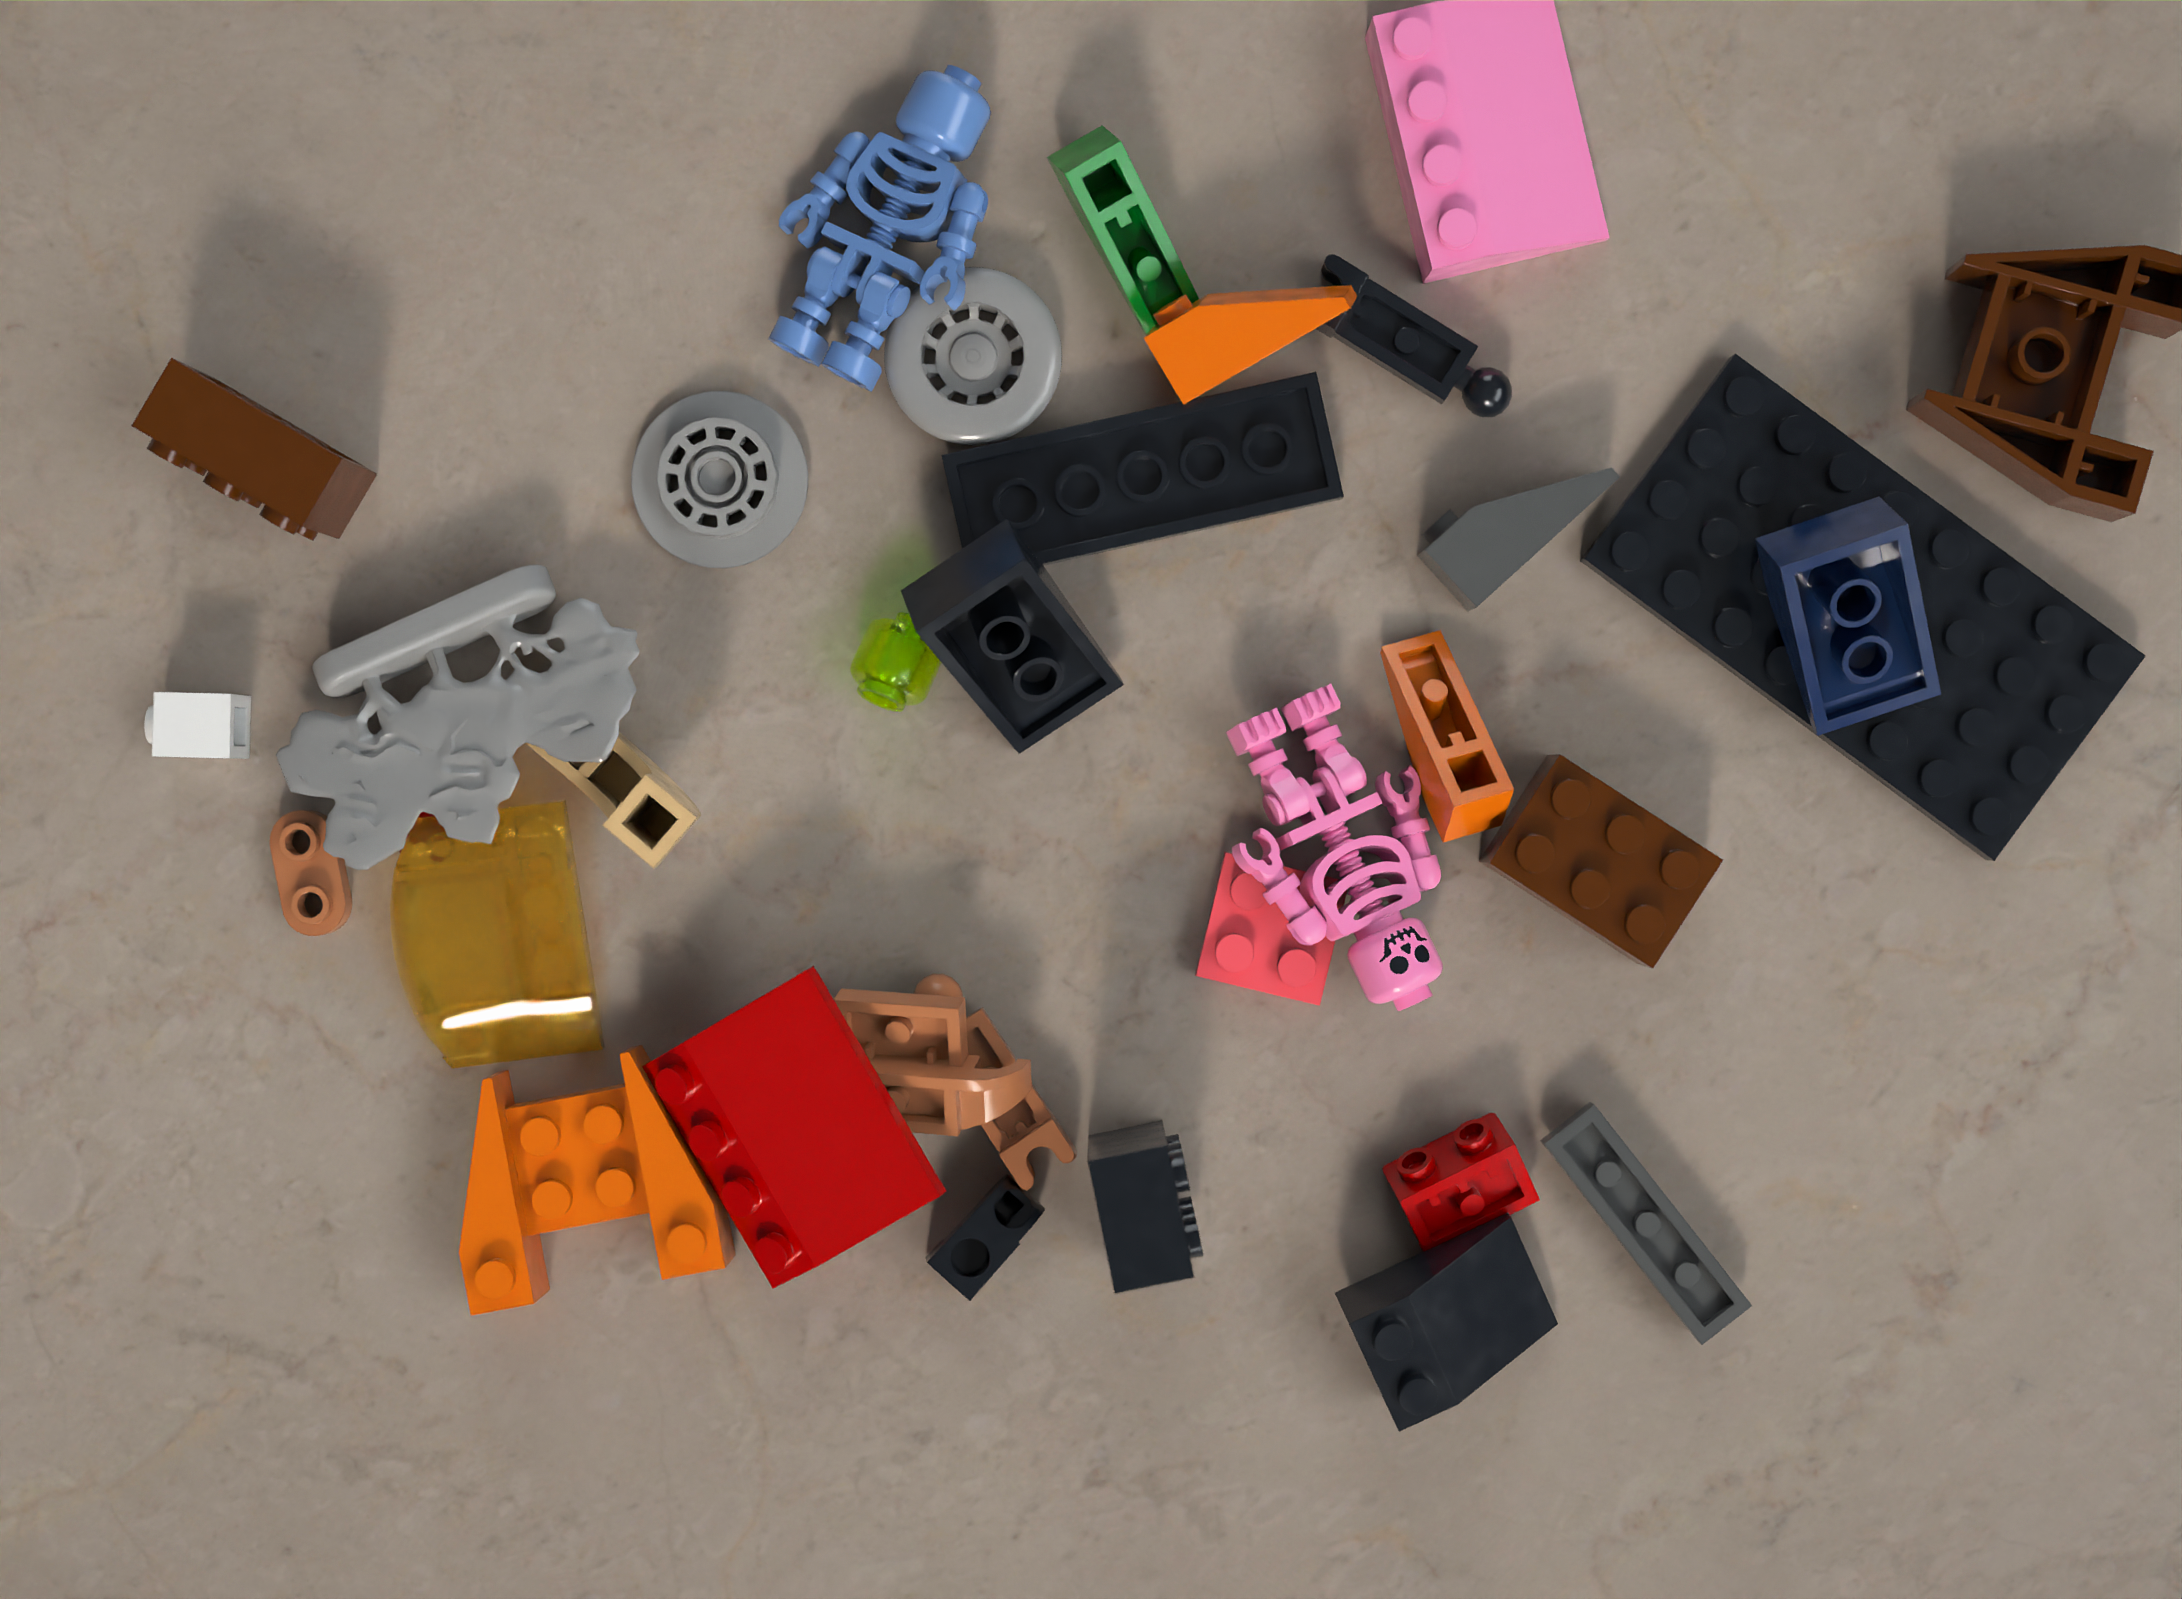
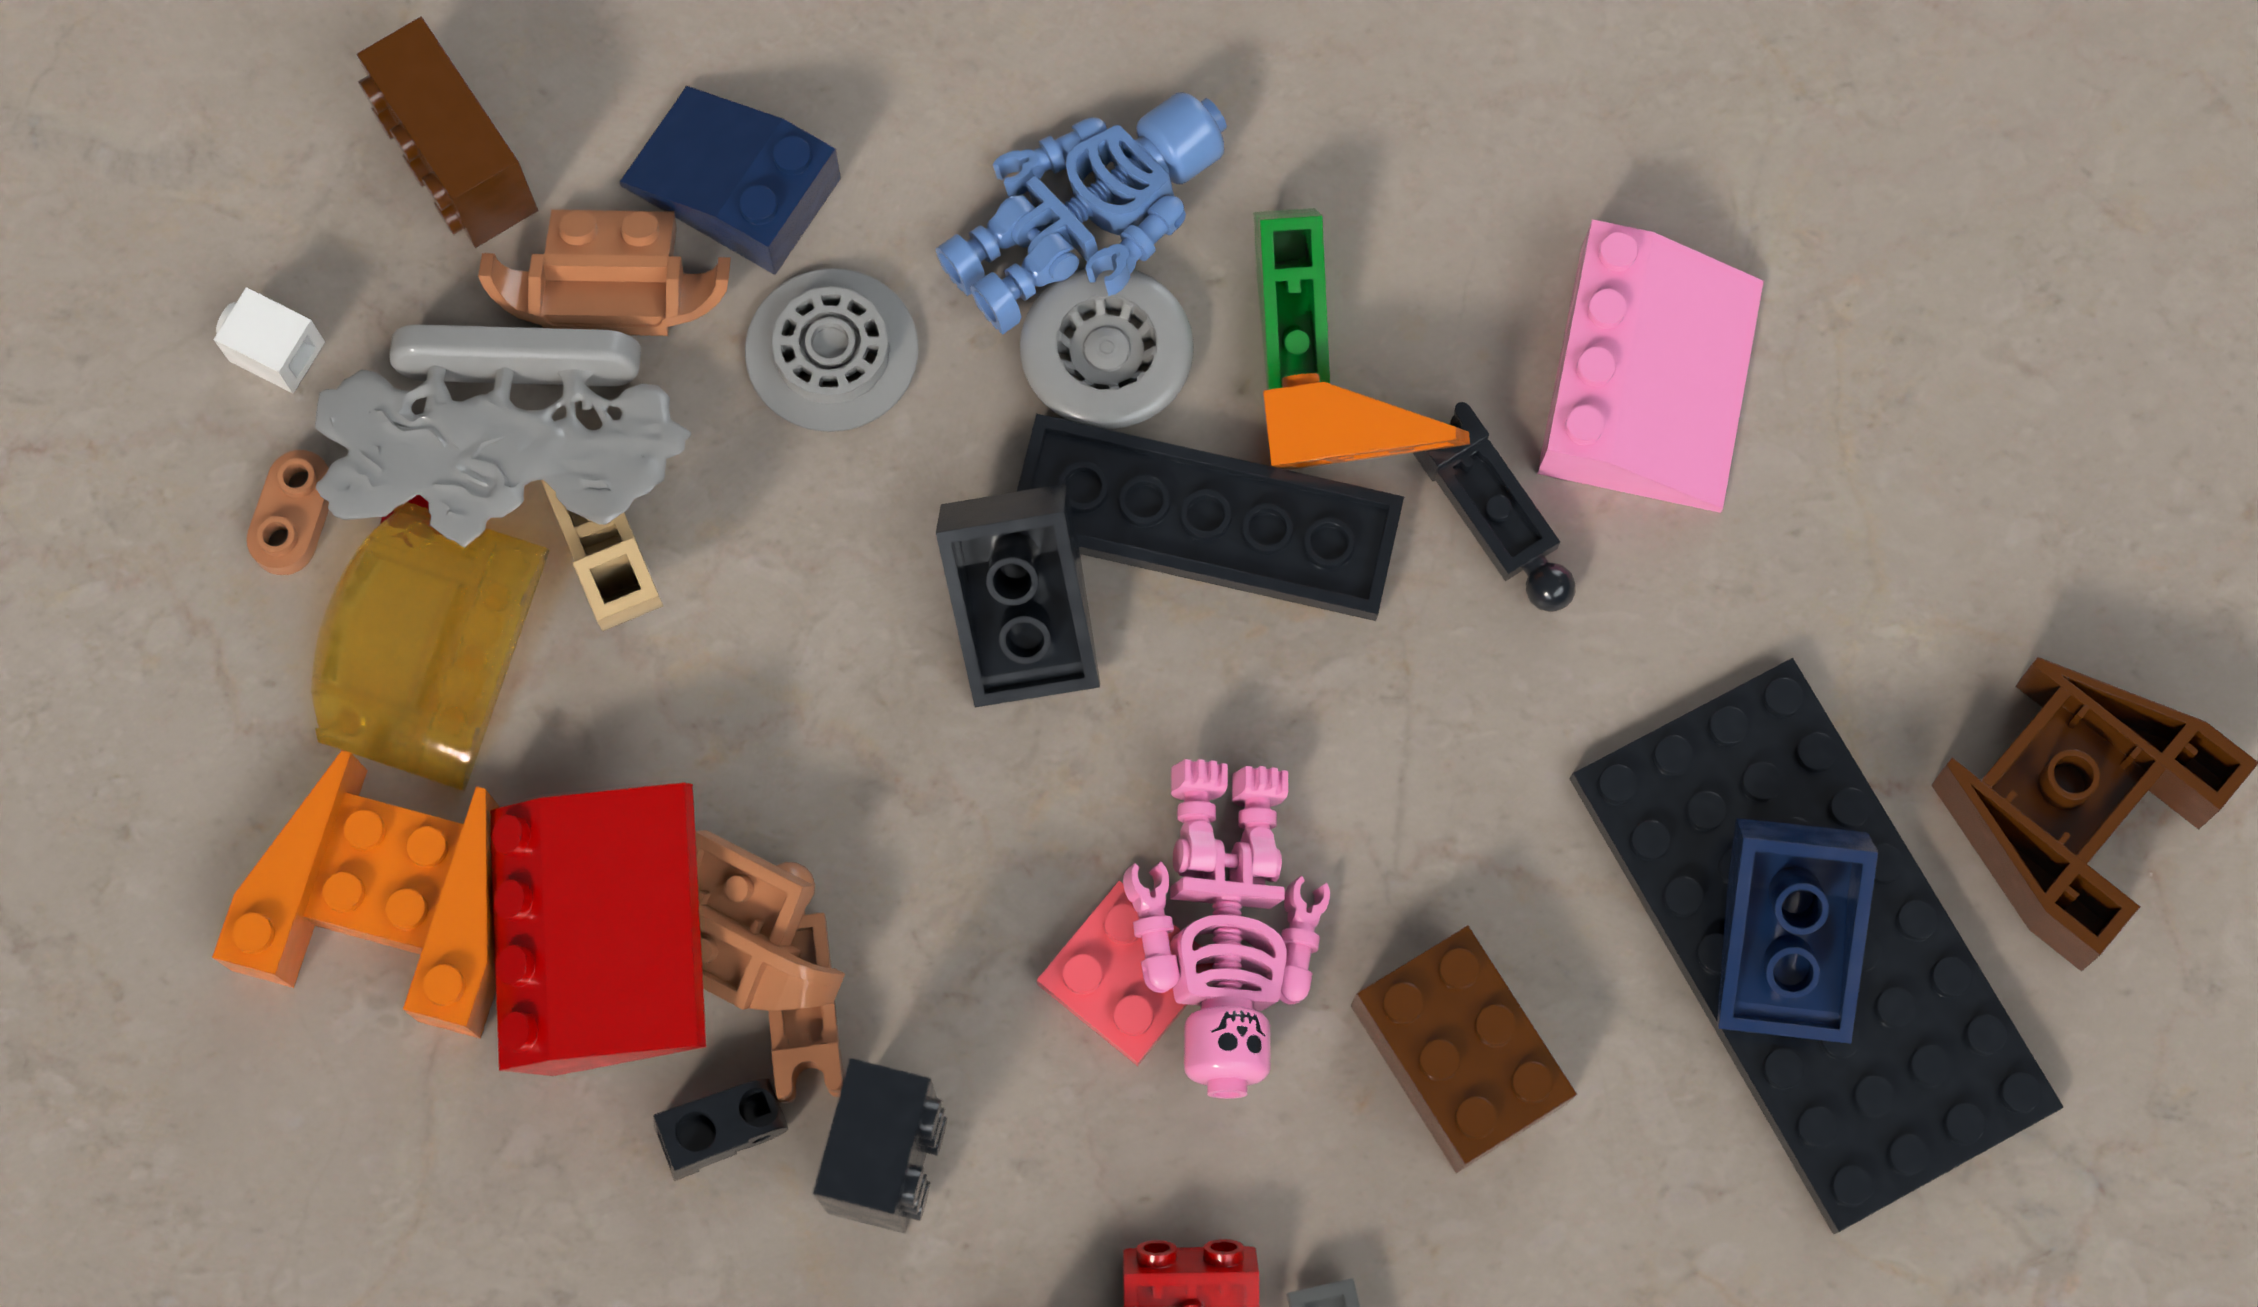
camera: 30 degrees right, 15 degrees down
(477, 512) = (606, 276): none -> nougat plate
(541, 354) = (735, 175): none -> dark blue slope
(893, 664) = (902, 572): clear neon green head -> none
(1446, 738) = (1370, 873): orange slope -> none
(1498, 537) = (1508, 715): dark grey slope -> none

